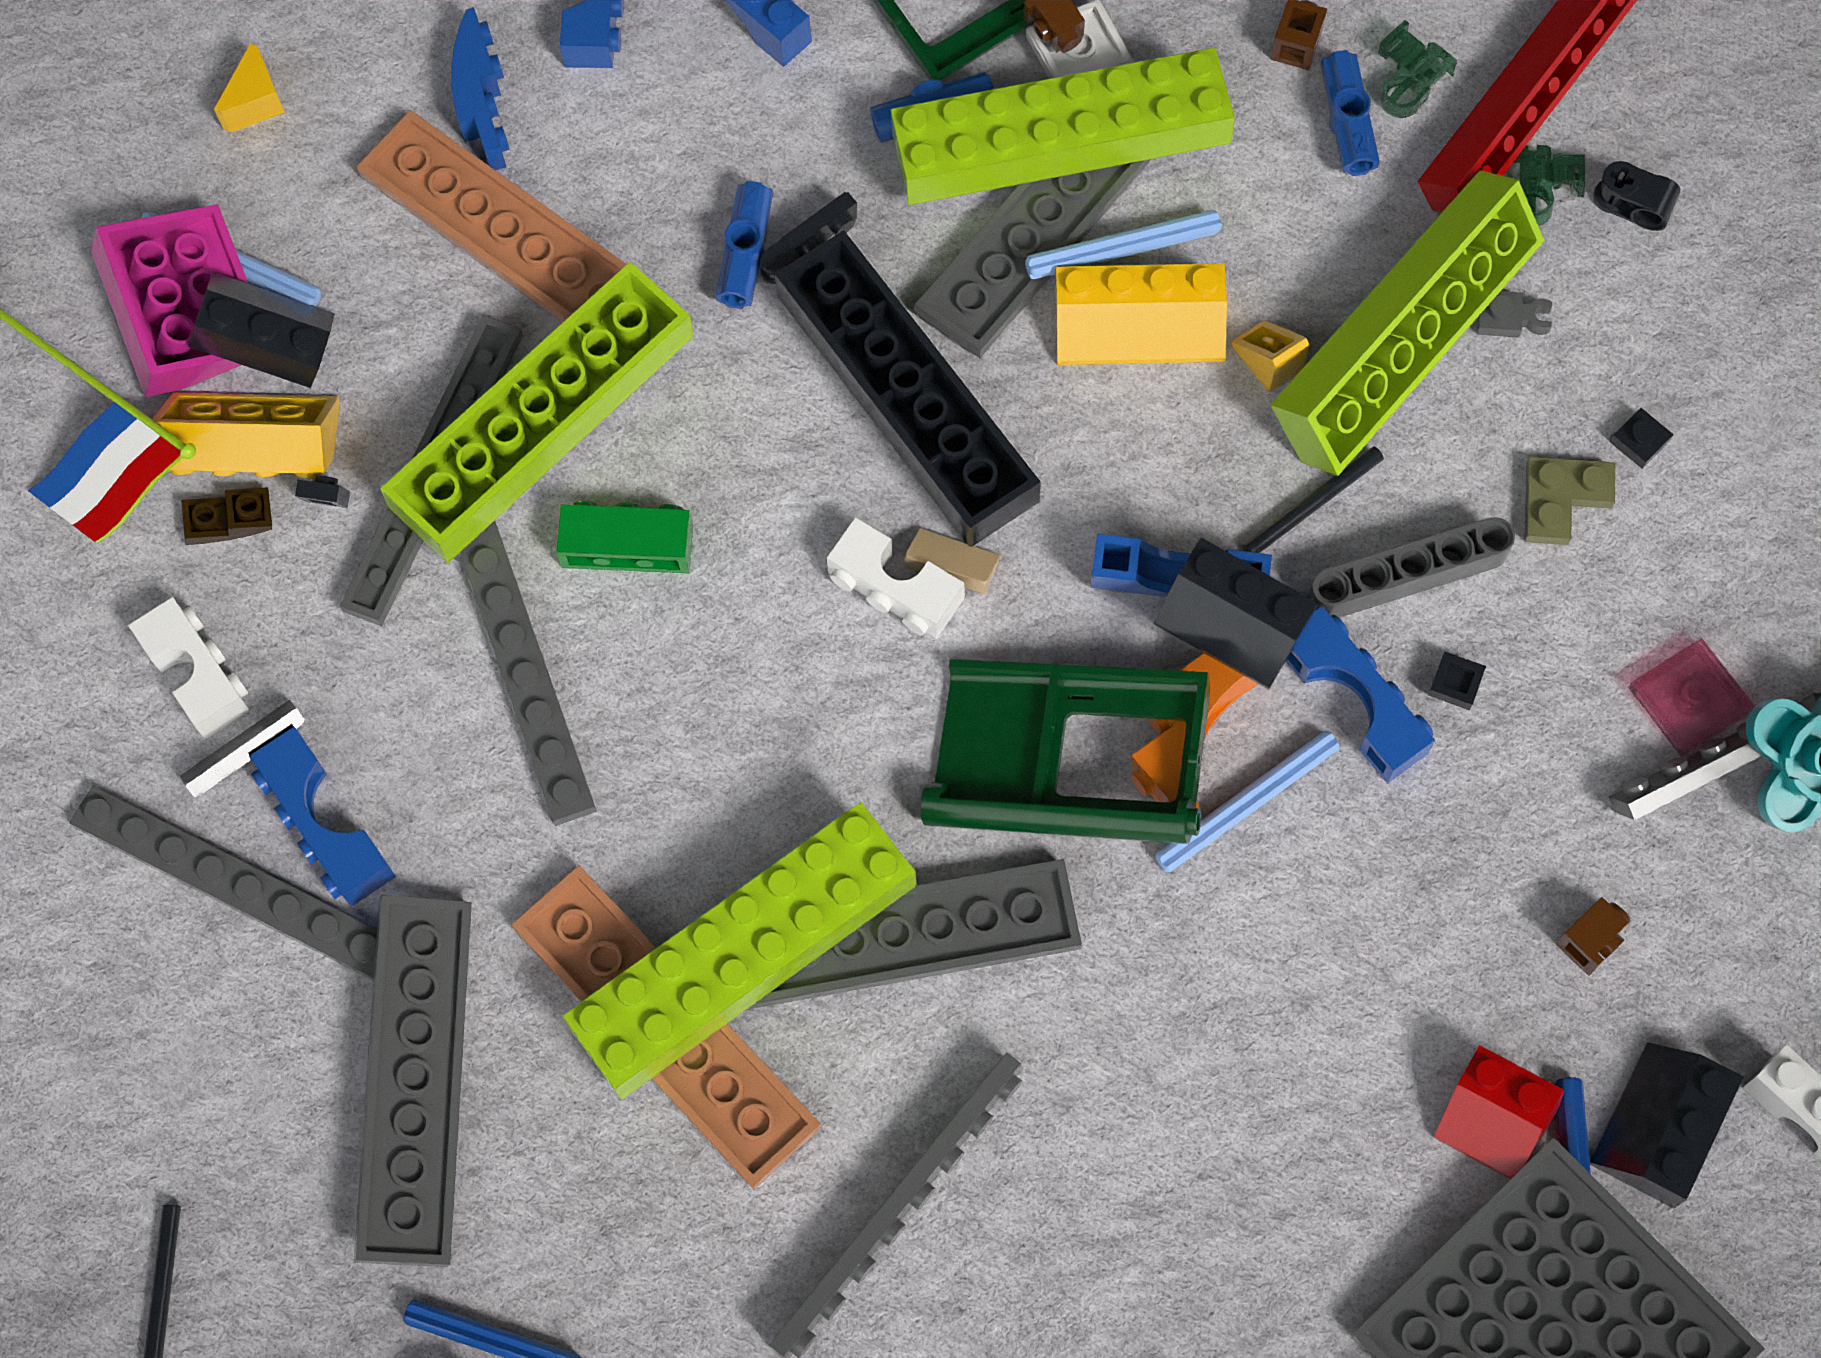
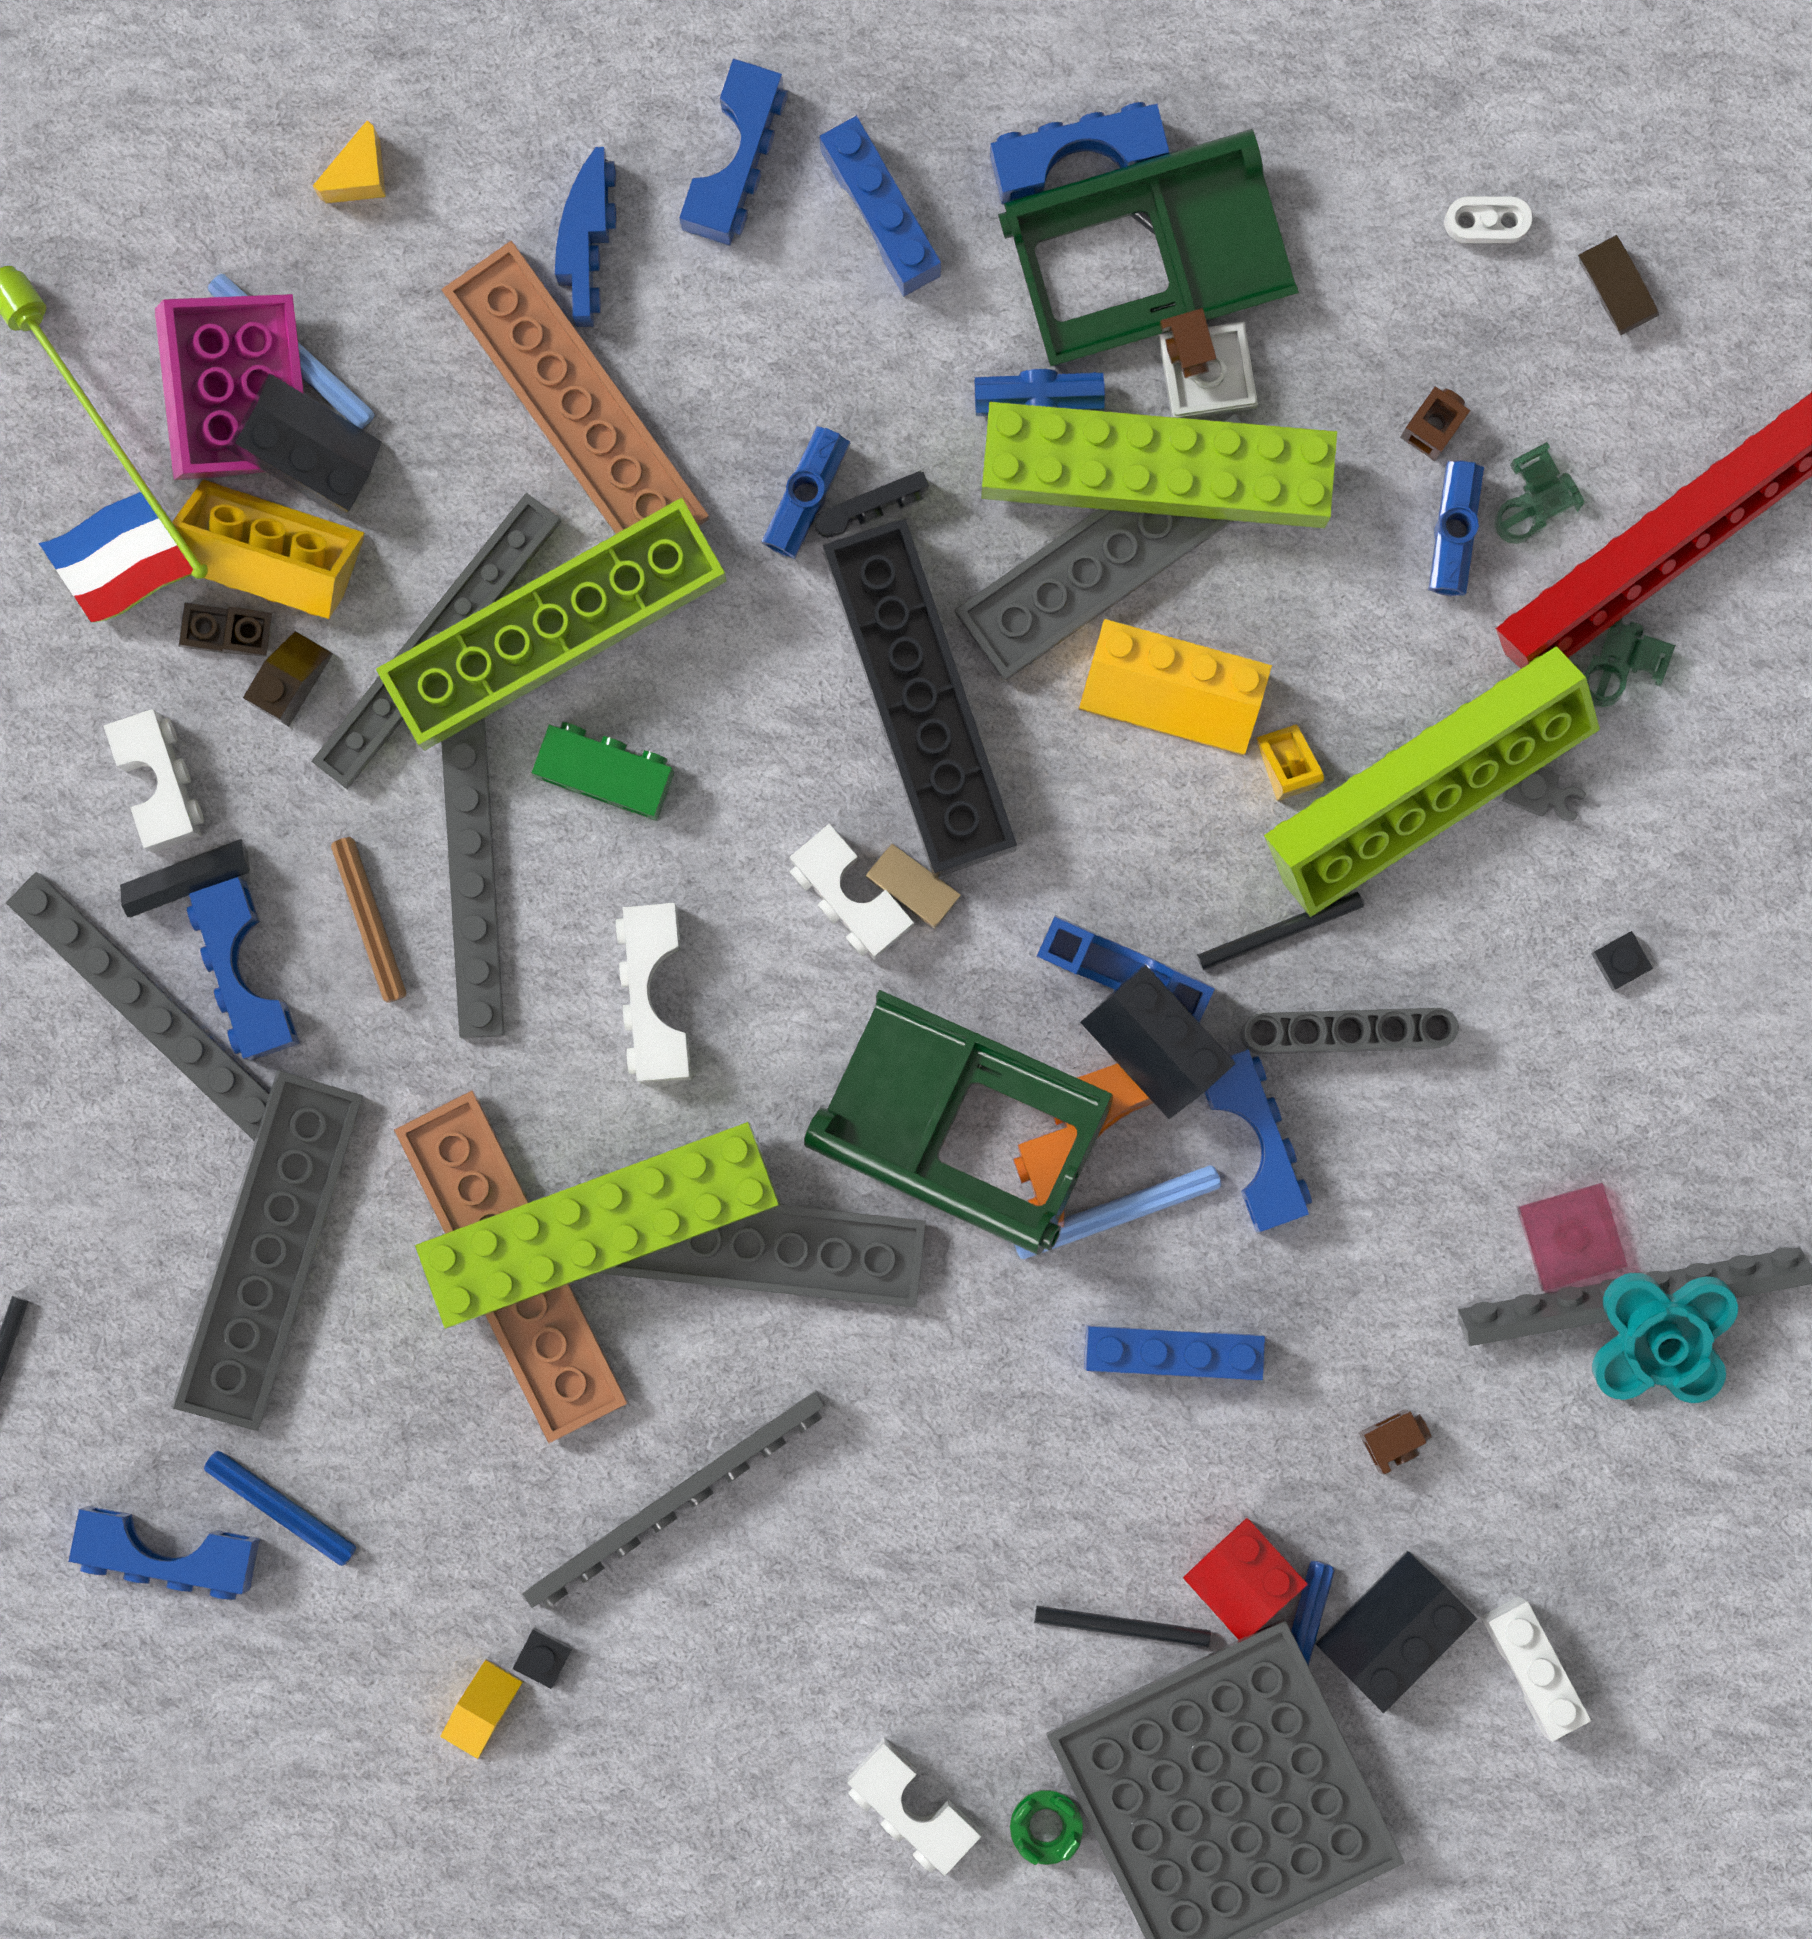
camera: 15 degrees right, 15 degrees up
(296, 542) = (287, 677): none -> dark brown slope
(322, 491) = (324, 636): black plate -> none
(434, 738) = (368, 919): none -> medium nougat axle
(752, 770) = (650, 938): none -> white arch
(1124, 243) = (1181, 606): light blue axle -> none
(1378, 903) = (1174, 1352): none -> blue arch
(1390, 1202) = (1122, 1626): none -> black bar
(1457, 680) = (1354, 1155): black plate -> none
(1555, 487) = (1521, 985): olive plate -> none
(1639, 196) = (1716, 711): black piece -> none

